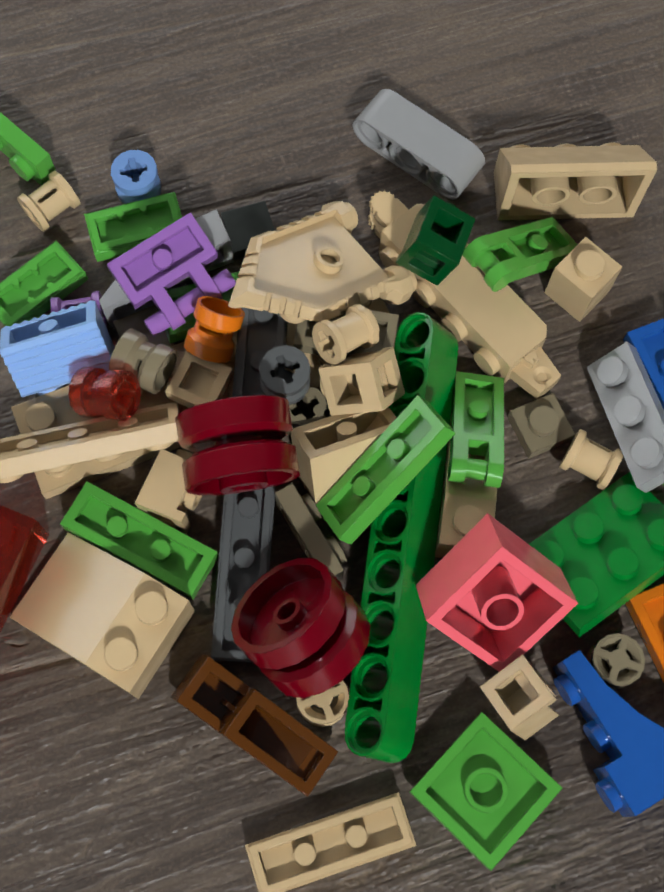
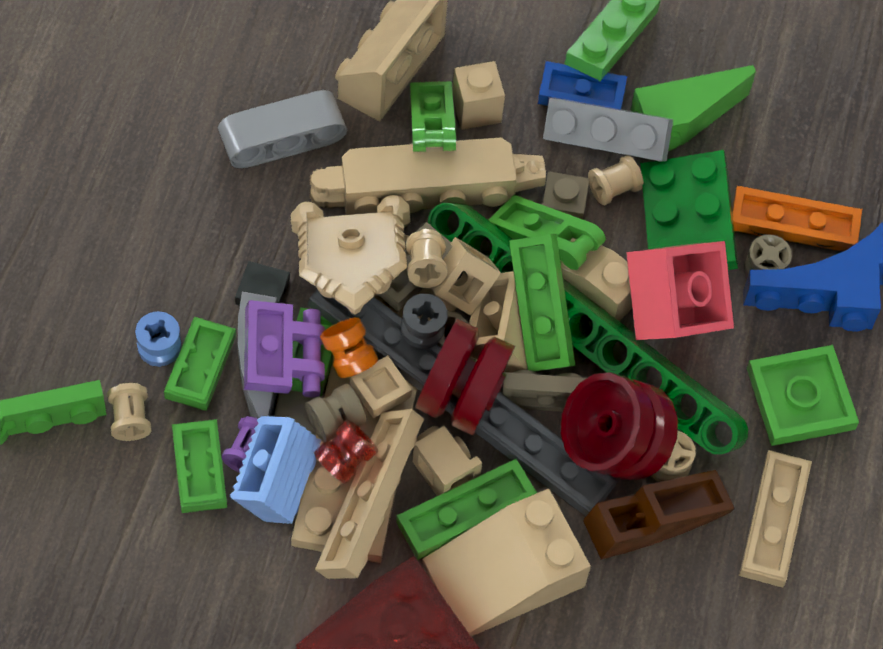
camera: 60 degrees left, 10 degrees down
(436, 240) = (392, 158): dark green brick -> none
(521, 698) = (758, 326): tan brick -> none

